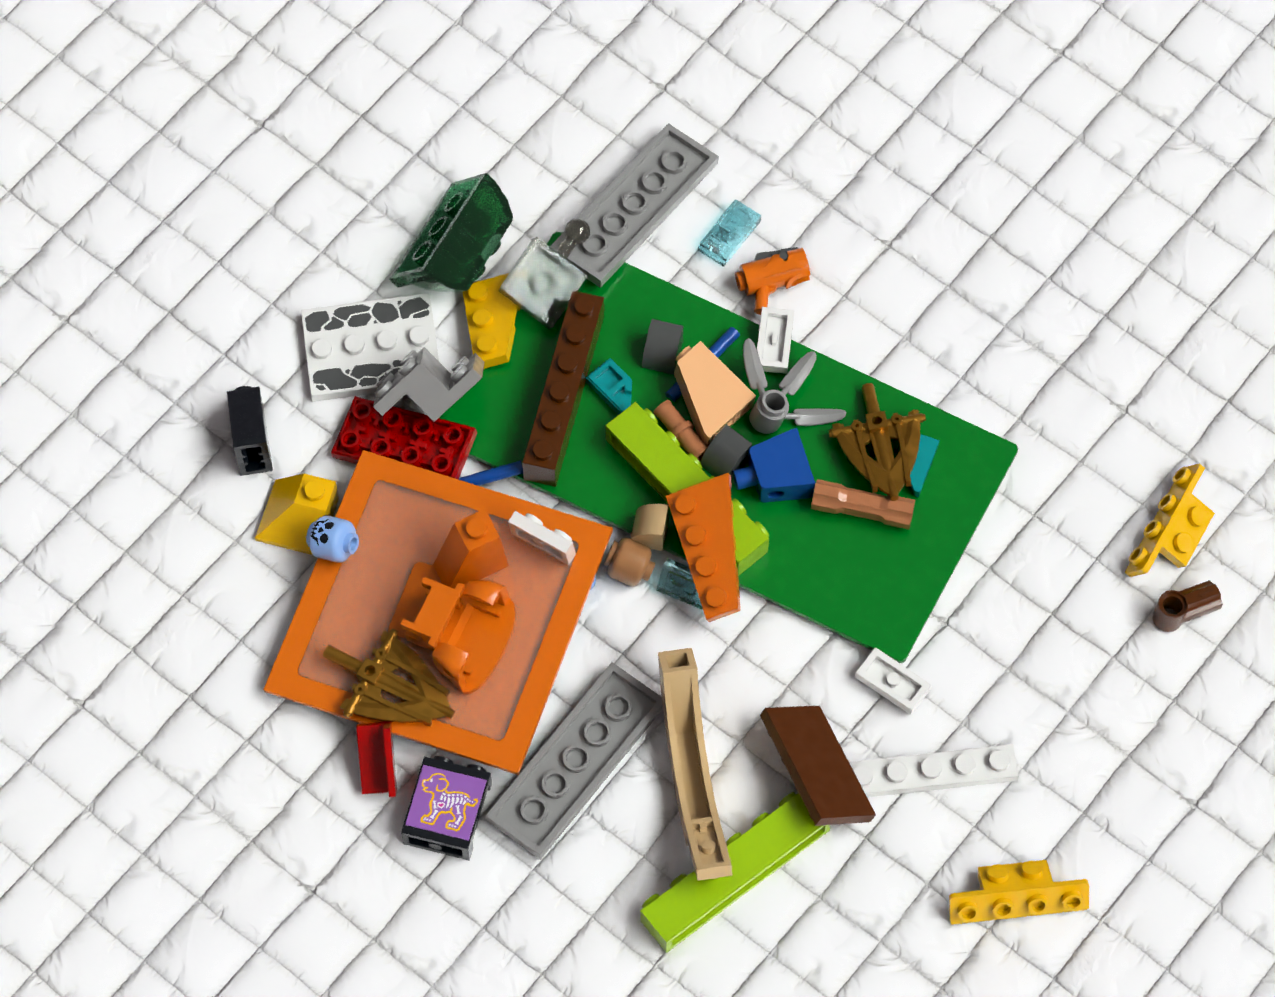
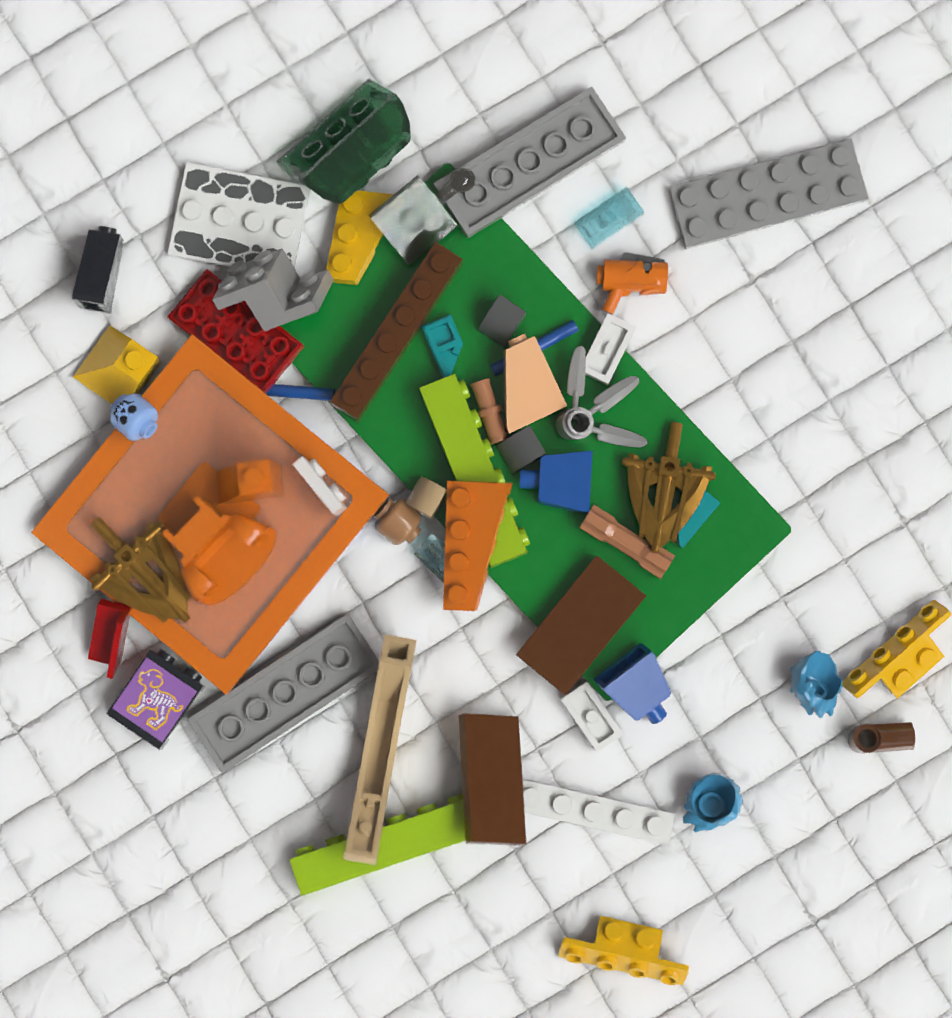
camera: 15 degrees right, 20 degrees up
(848, 595) = (580, 625): none -> reddish brown tile
(872, 166) = (768, 193): none -> light grey plate
(926, 631) = (636, 684): none -> torso
(1045, 714) = (712, 802): none -> dark azure hair
(1100, 574) = (816, 683): none -> dark azure hair

